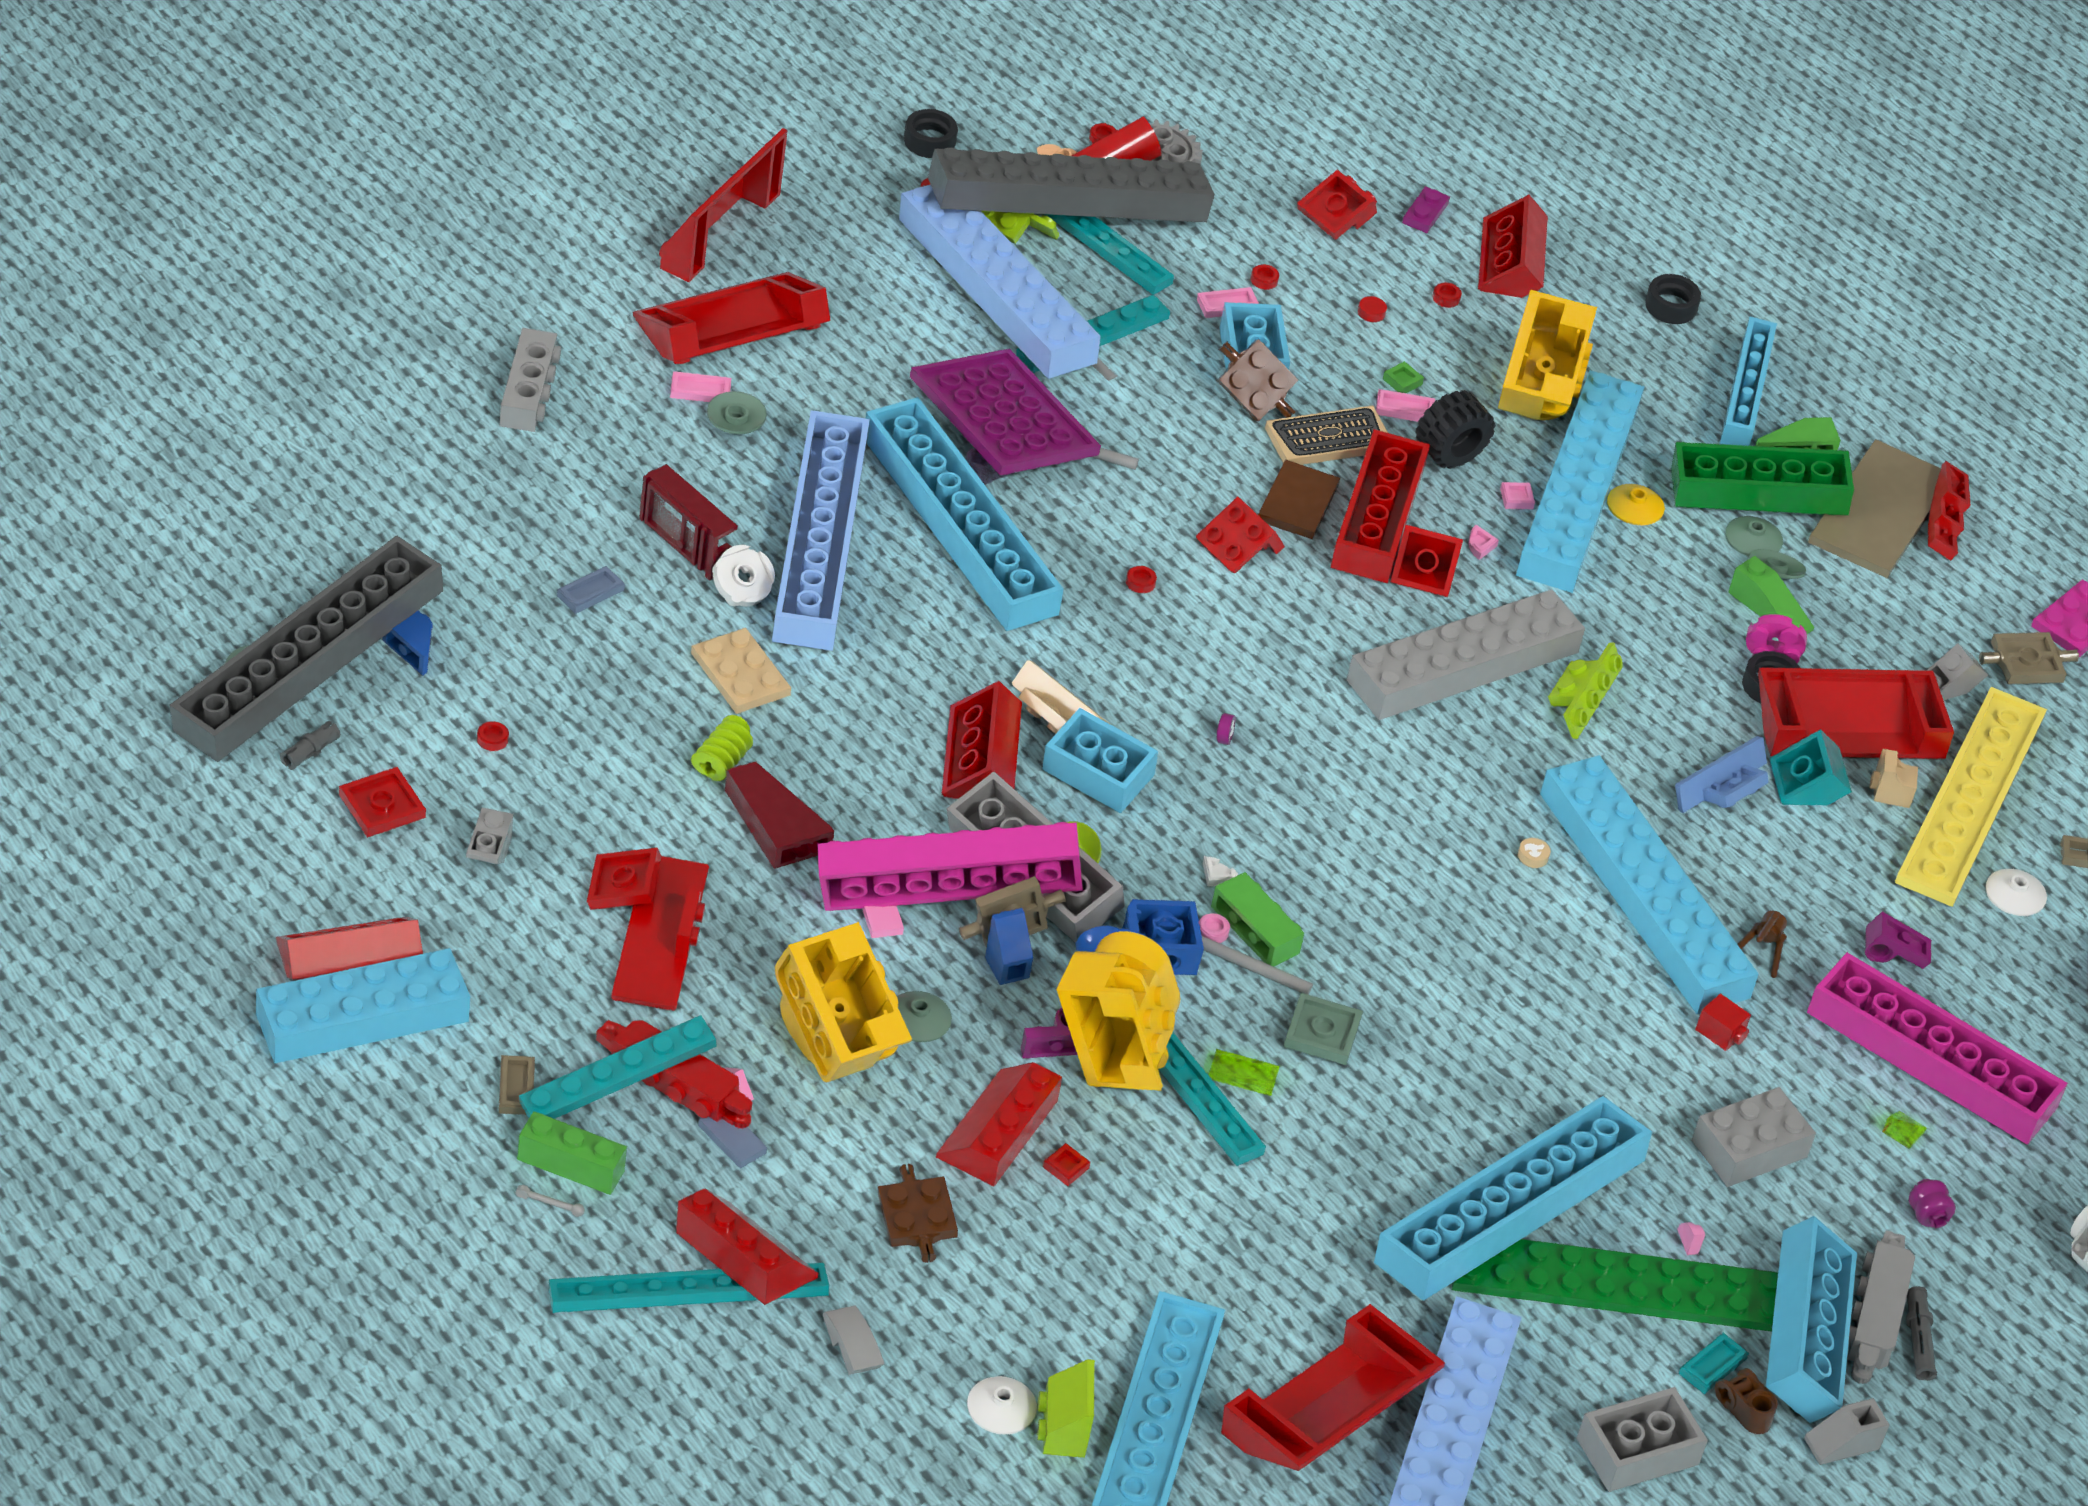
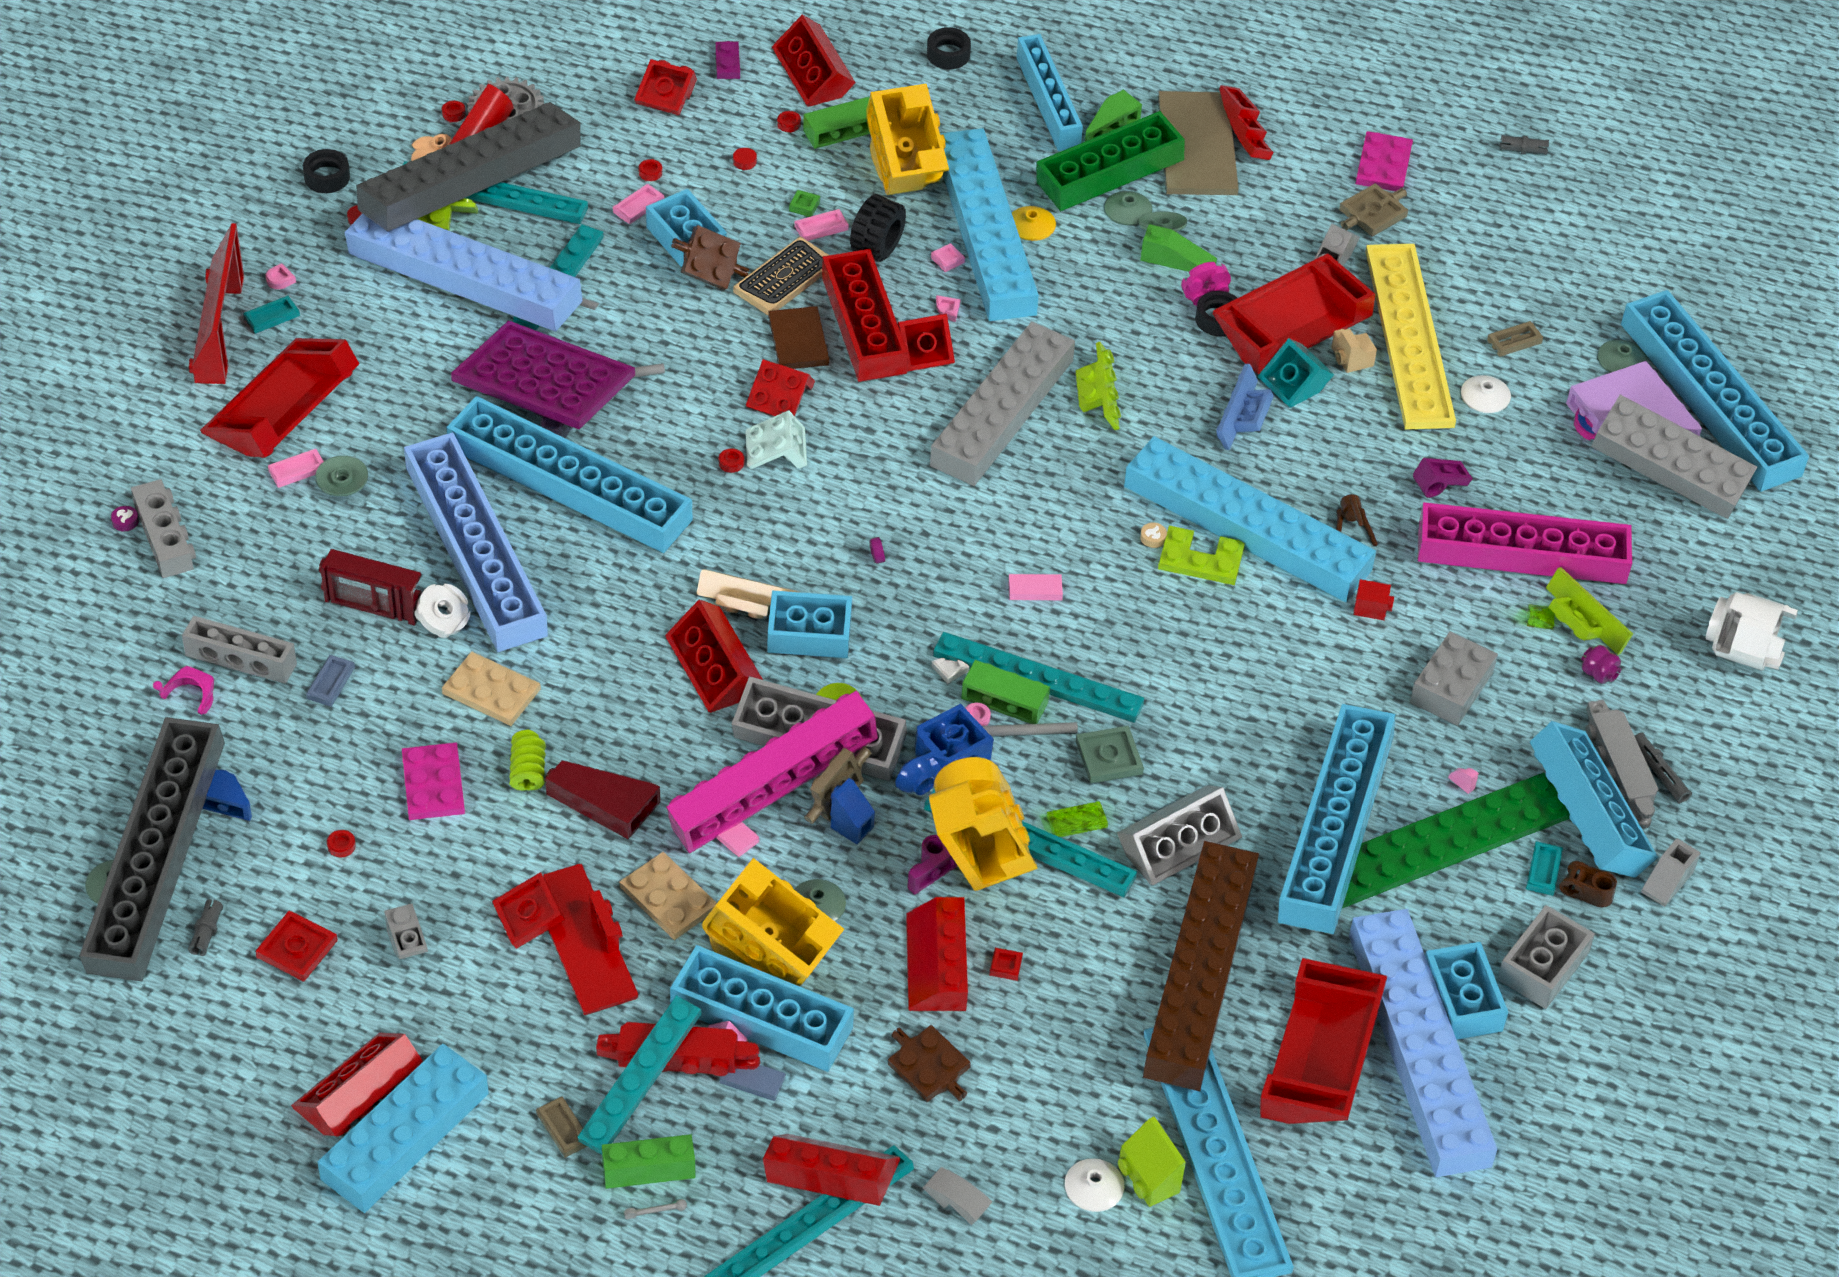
camera: 25 degrees left, 5 degrees up
(452, 519) = (192, 676): none -> dark pink helmet
(501, 356) = (124, 518): none -> magenta tile
(520, 518) = (239, 649): none -> light grey brick
(622, 724) = (433, 781): none -> dark pink plate
(767, 929) = (668, 895): none -> tan plate
(779, 239) = (271, 314): none -> teal tile
(787, 1077) = (765, 1007): none -> medium azure brick
(813, 210) = (279, 277): none -> bright pink tile
(1206, 577) = (776, 438): none -> light aqua bracket
(1261, 1260) = (1201, 966): none -> reddish brown brick
(1319, 935) = (1061, 683): none -> teal plate
(1339, 1137) = (1176, 833): none -> light grey slope
(1368, 841) = (1035, 587): none -> bright pink tile
(1489, 316) = (836, 123): none -> bright green brick
(1526, 1425) = (1468, 990): none -> medium azure brick
(1547, 888) = (1179, 559): none -> lime plate
(1952, 1147) = (1584, 613): none -> lime bracket

